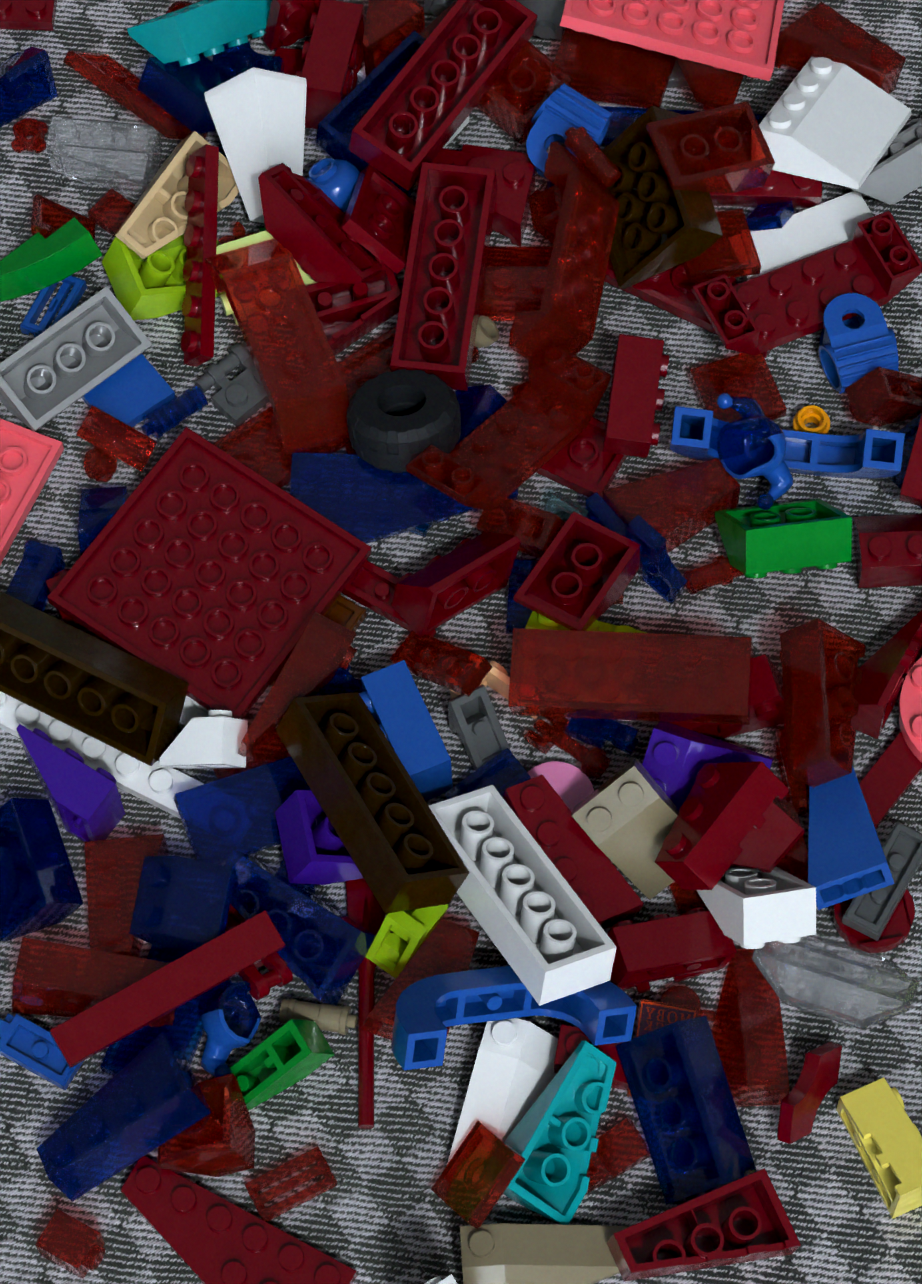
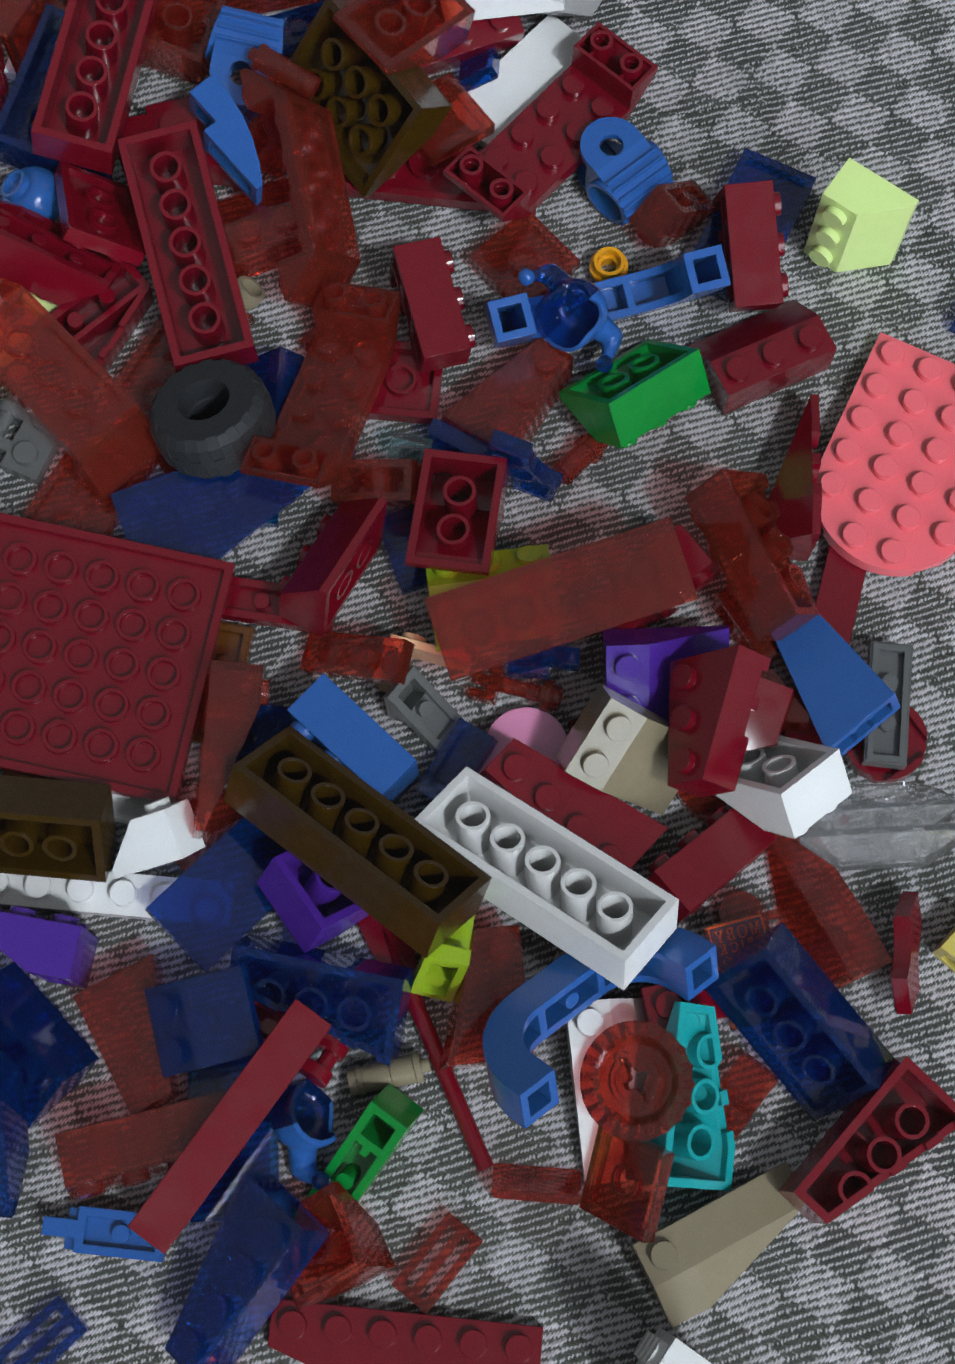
camera: 25 degrees left, 10 degrees up
(401, 1157) = (537, 1184): none -> clear red slope
(500, 1077) = (608, 1070): none -> clear red gear
(519, 192) = (227, 136): none -> blue slope

